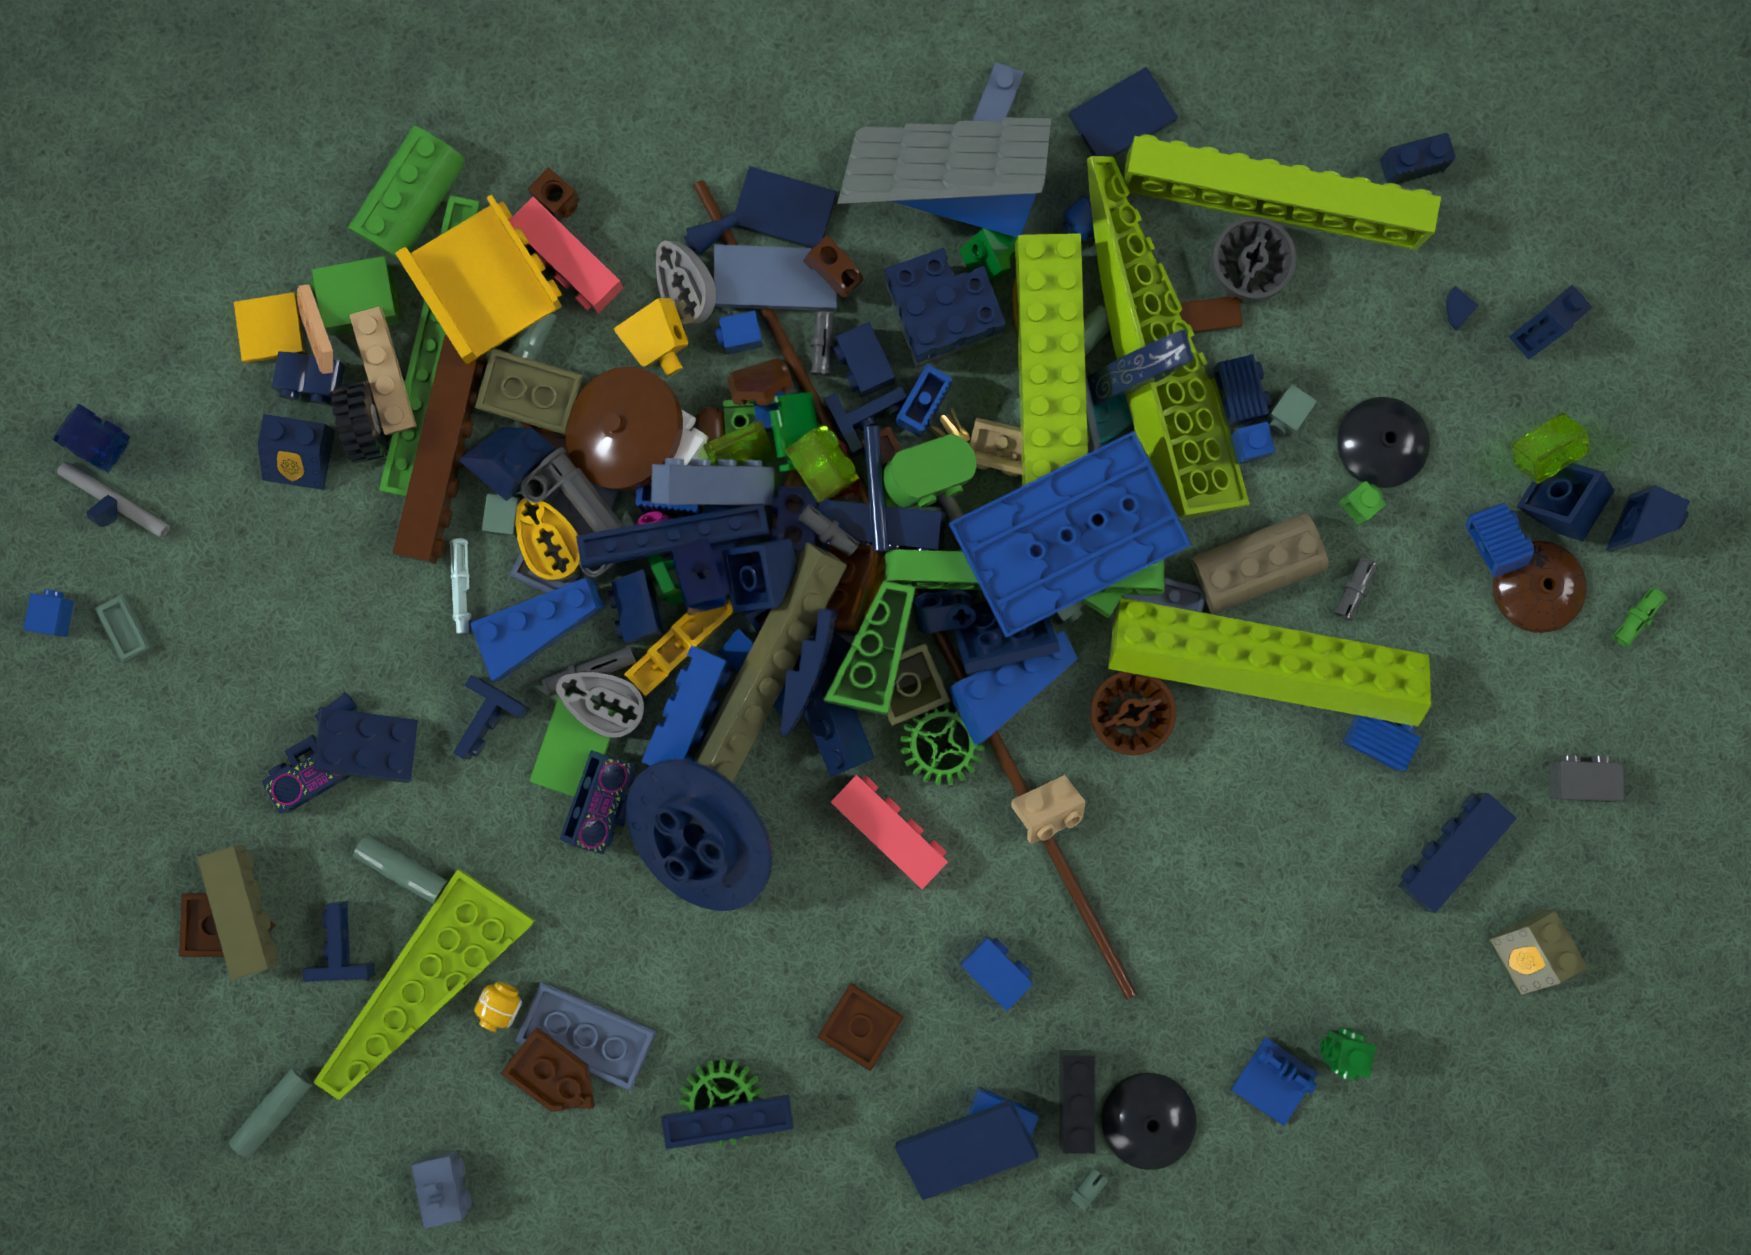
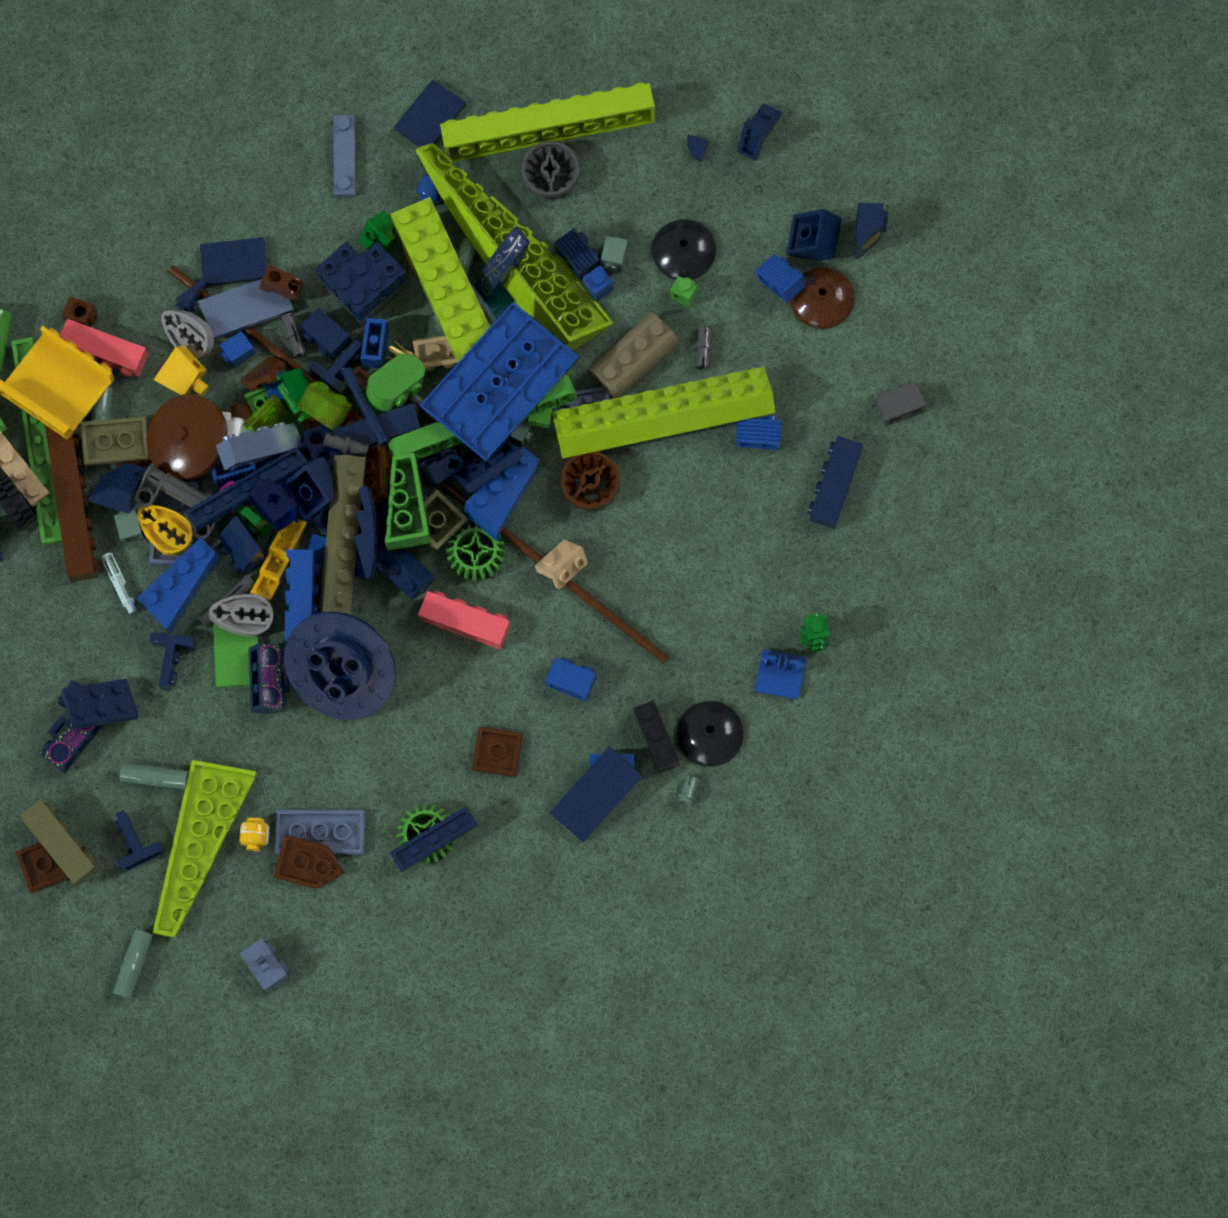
camera: 15 degrees left, 10 degrees down
(959, 170) = (338, 191): light grey piece -> none
(1212, 314) = (539, 215): reddish brown tile -> none
(1417, 159) = (630, 66): dark blue brick -> none
(1538, 952) = (913, 522): olive slope -> none
(1550, 447) = (789, 208): clear neon green brick -> none
(1639, 617) = (892, 290): bright green pin -> none

